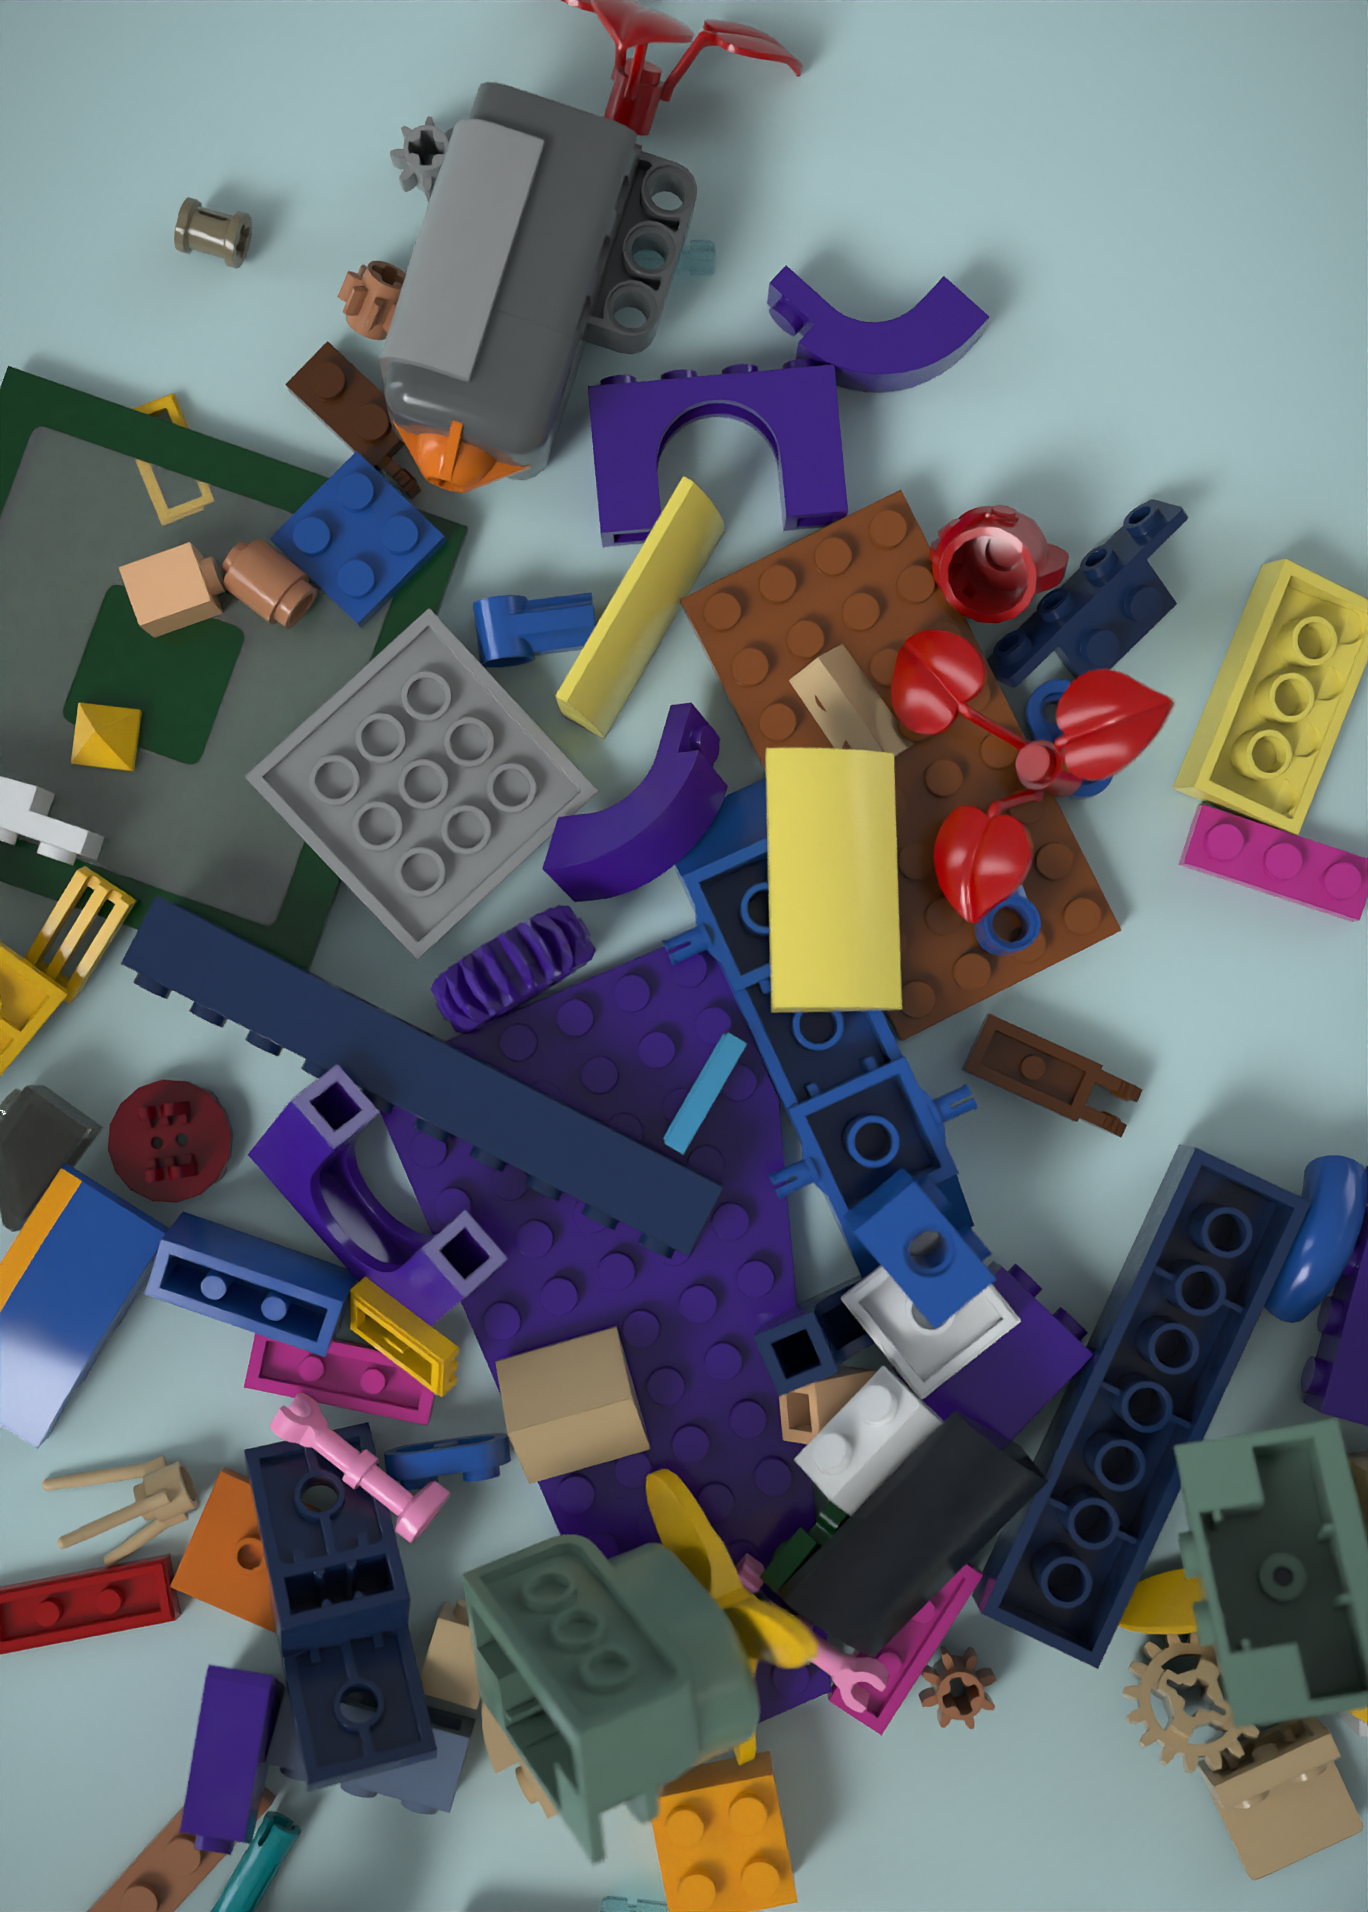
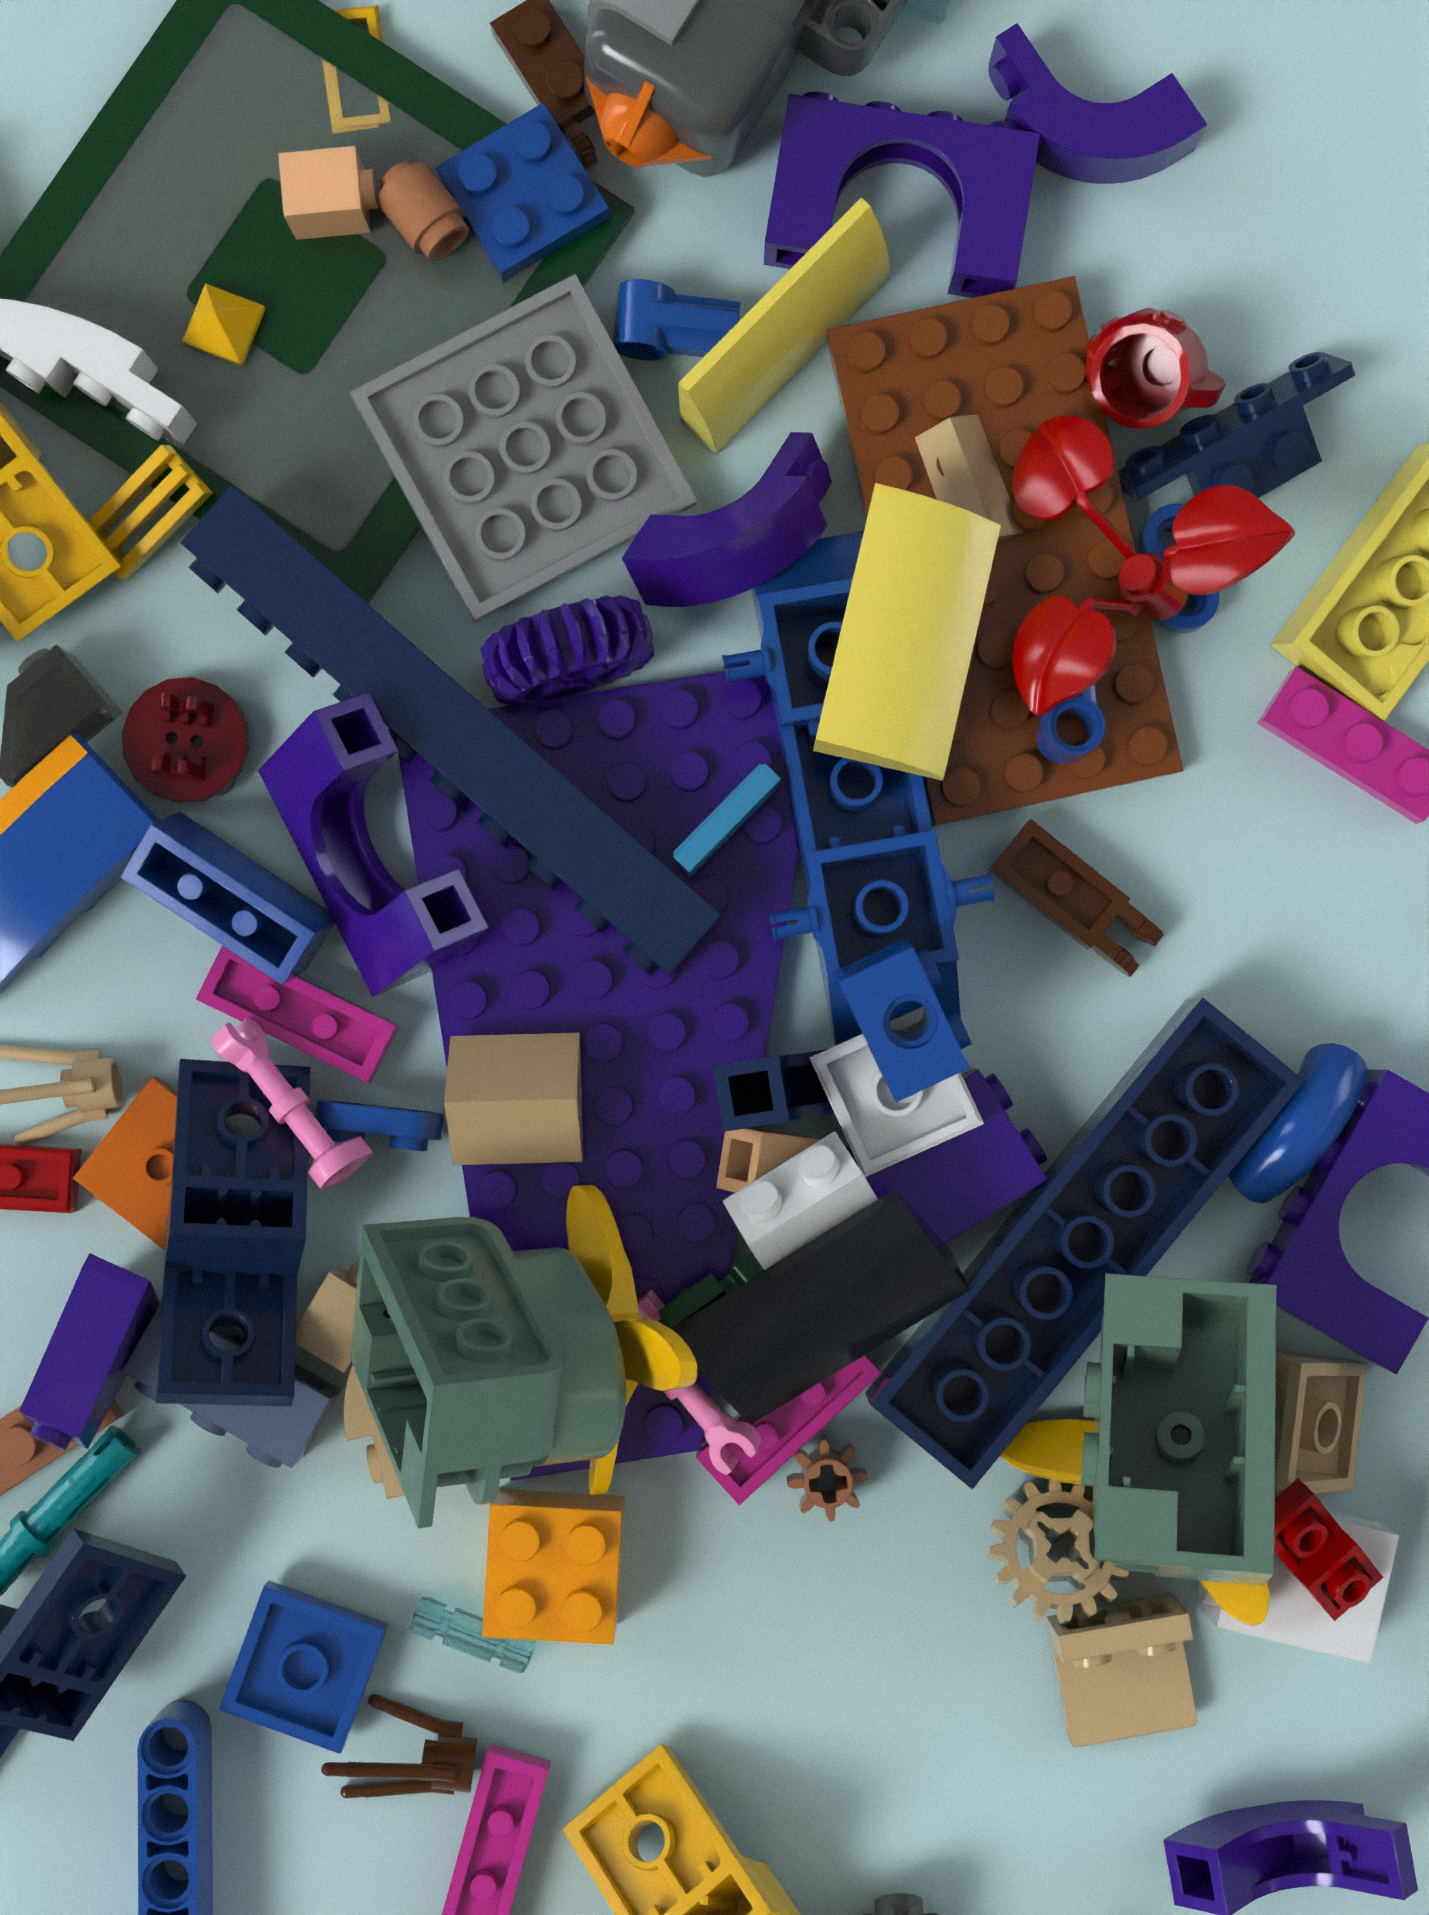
camera: 20 degrees right, 0 degrees up
(403, 1337) = (365, 987): yellow tile -> none

